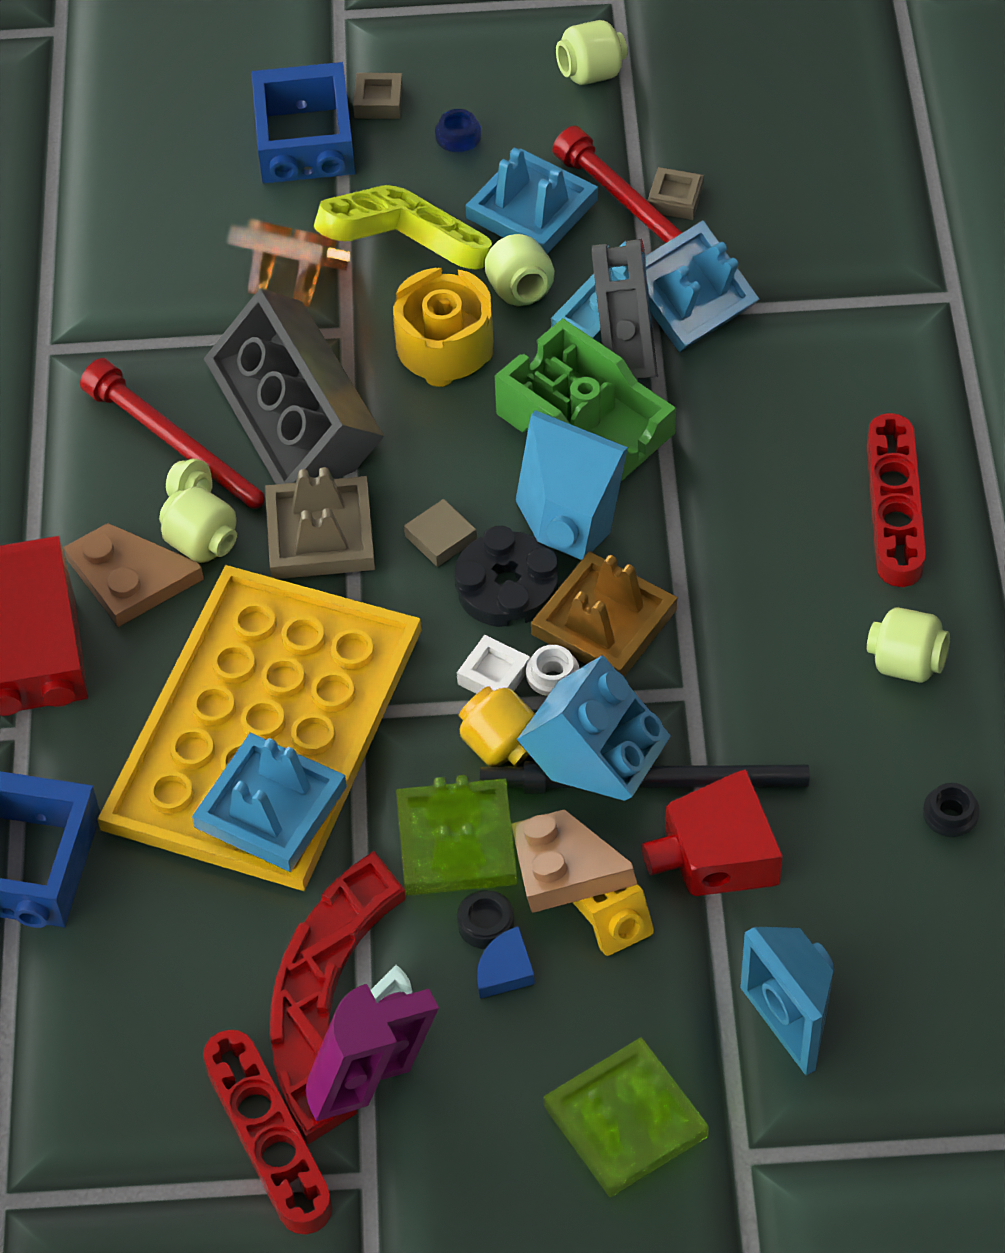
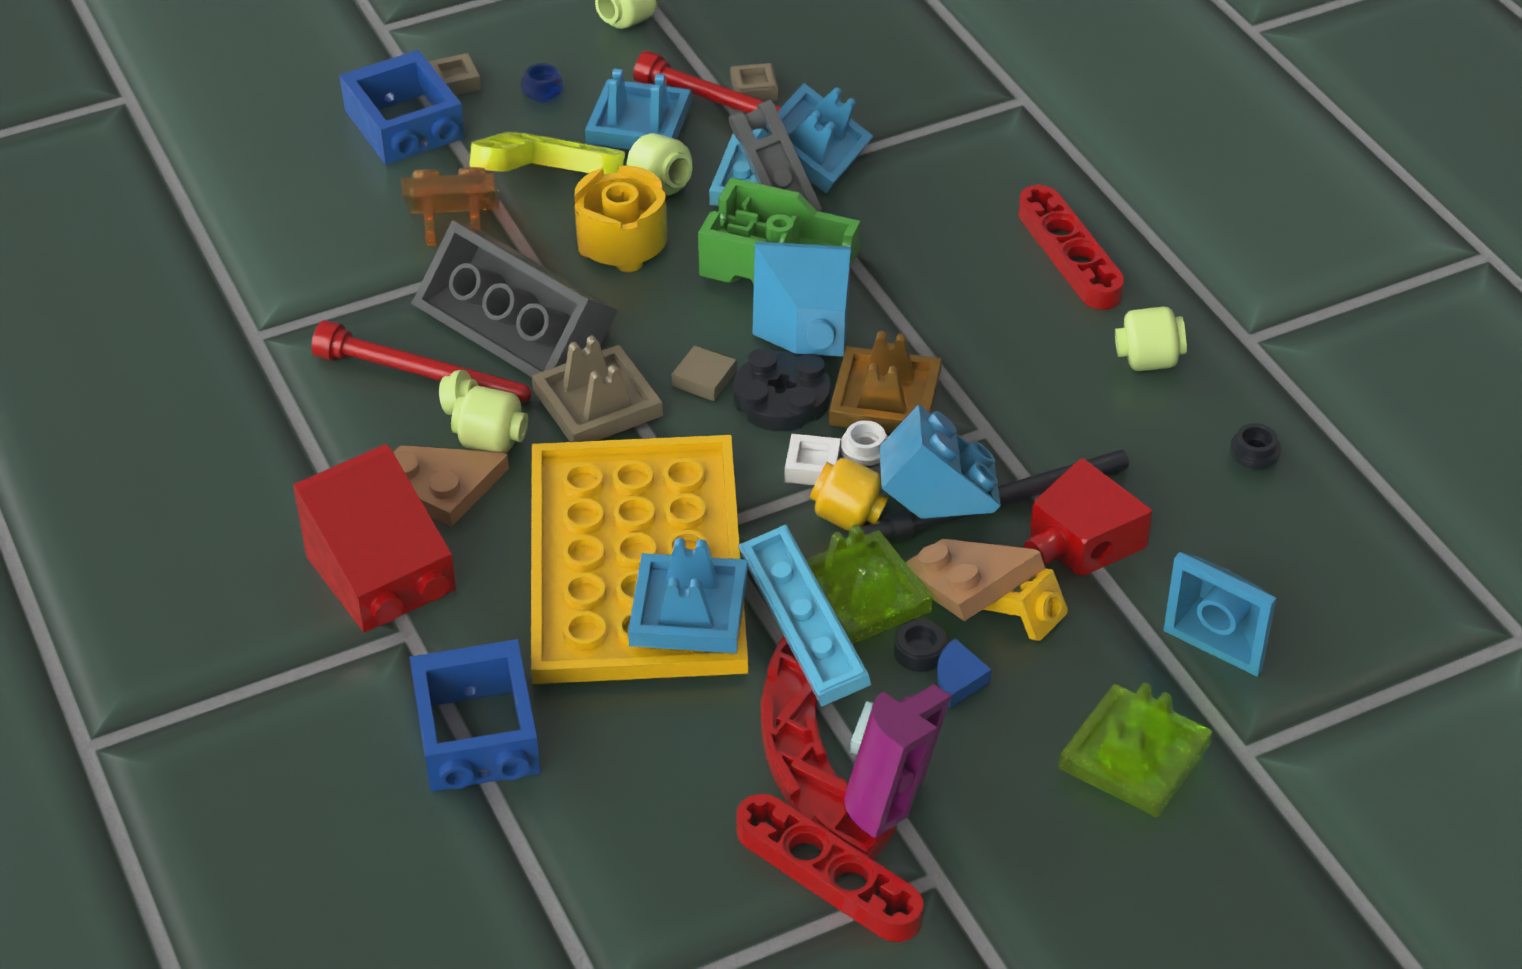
camera: 25 degrees left, 10 degrees down
(378, 851) = (804, 616): none -> medium azure tile

